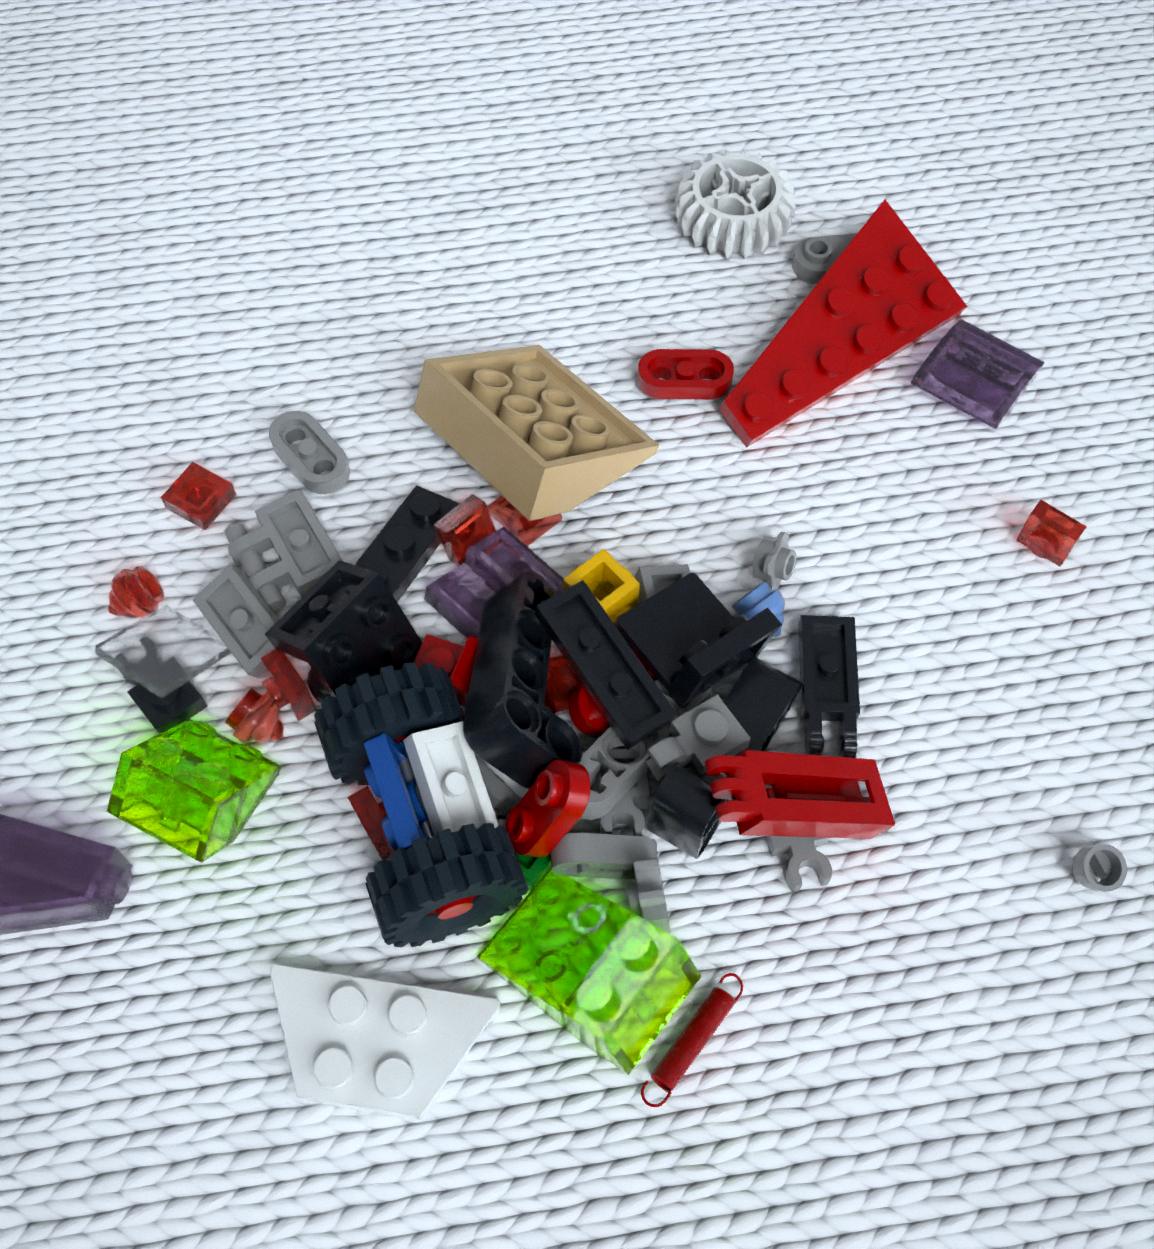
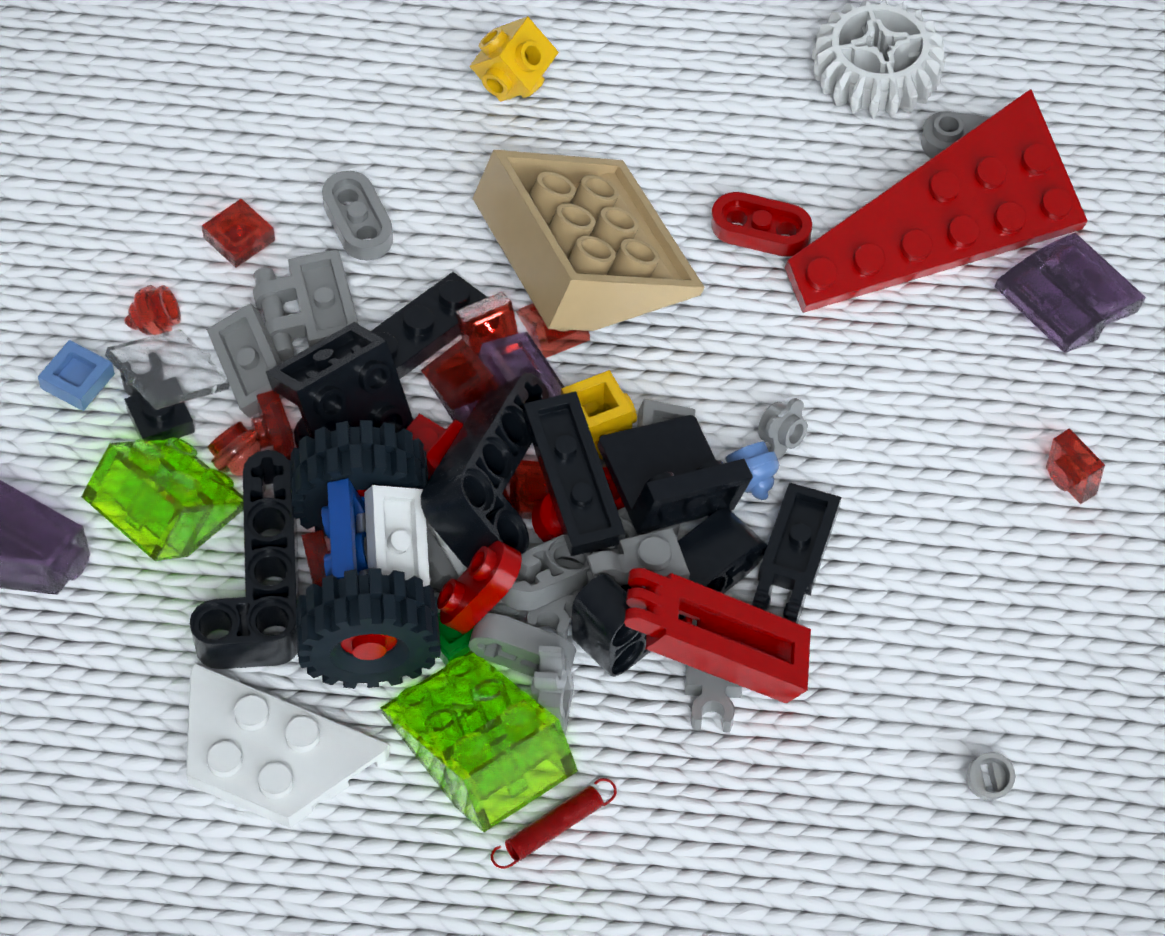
camera: 15 degrees right, 5 degrees down
(71, 679) = (76, 375): none -> medium blue plate
(312, 829) = (264, 558): none -> black beam
(414, 274) = (513, 59): none -> yellow brick
(455, 587) = (459, 376): none -> clear red slope

